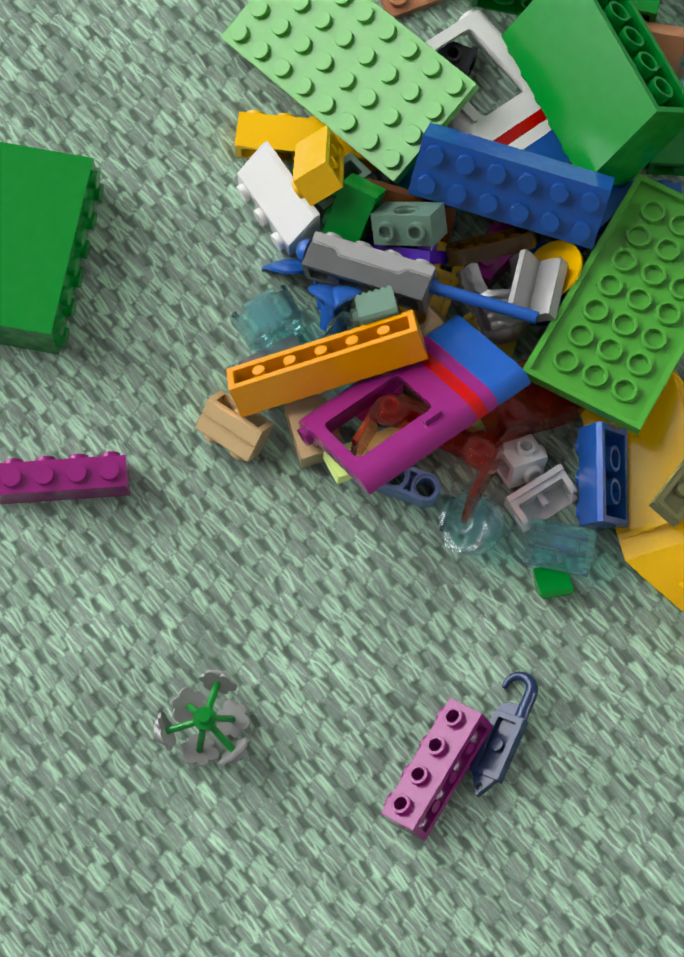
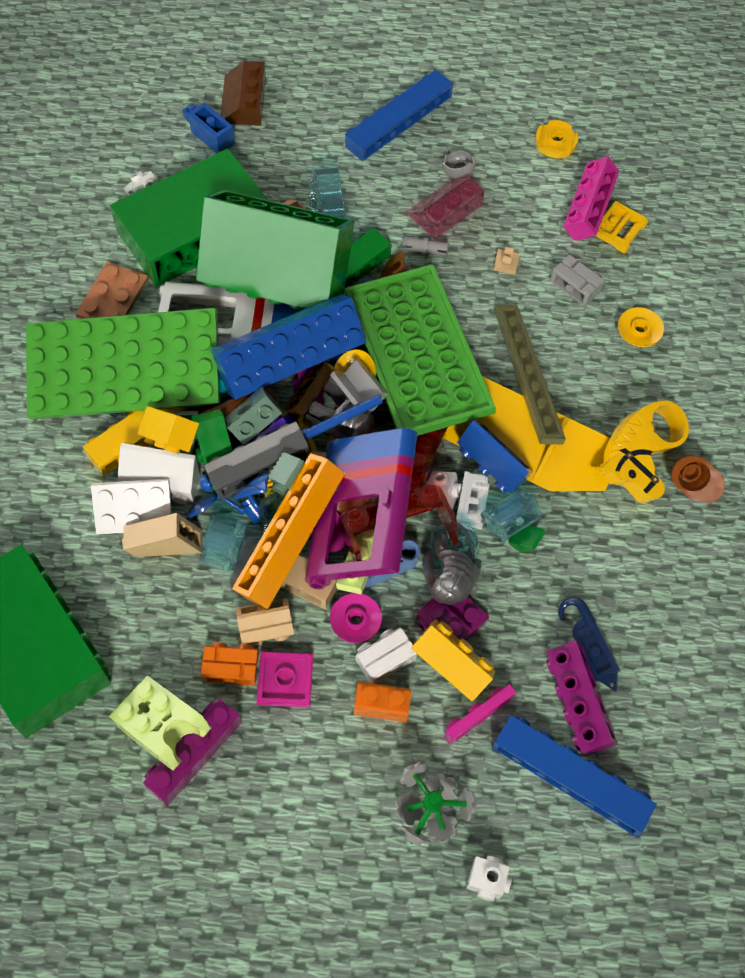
camera: 50 degrees left, 10 degrees down
(56, 424) = (158, 720): none -> yellowish green brick
(167, 435) = (230, 664): none -> orange brick
(181, 819) = (479, 882): none -> white brick
(202, 494) = (285, 679): none -> dark pink plate
(224, 263) = (163, 536): none -> tan slope
(227, 210) = (129, 503): none -> white plate
(260, 595) = (382, 702): none -> orange brick
(307, 559) = (385, 655): none -> white brick
(313, 485) = (355, 606): none -> dark pink dish
(332, 690) = (478, 713): none -> dark pink plate
(356, 824) = (575, 776): none -> blue brick
(357, 621) = (454, 659): none -> yellow brick
(403, 585) = (462, 618): none -> magenta plate
(439, 548) = (457, 577): none -> flat silver hair

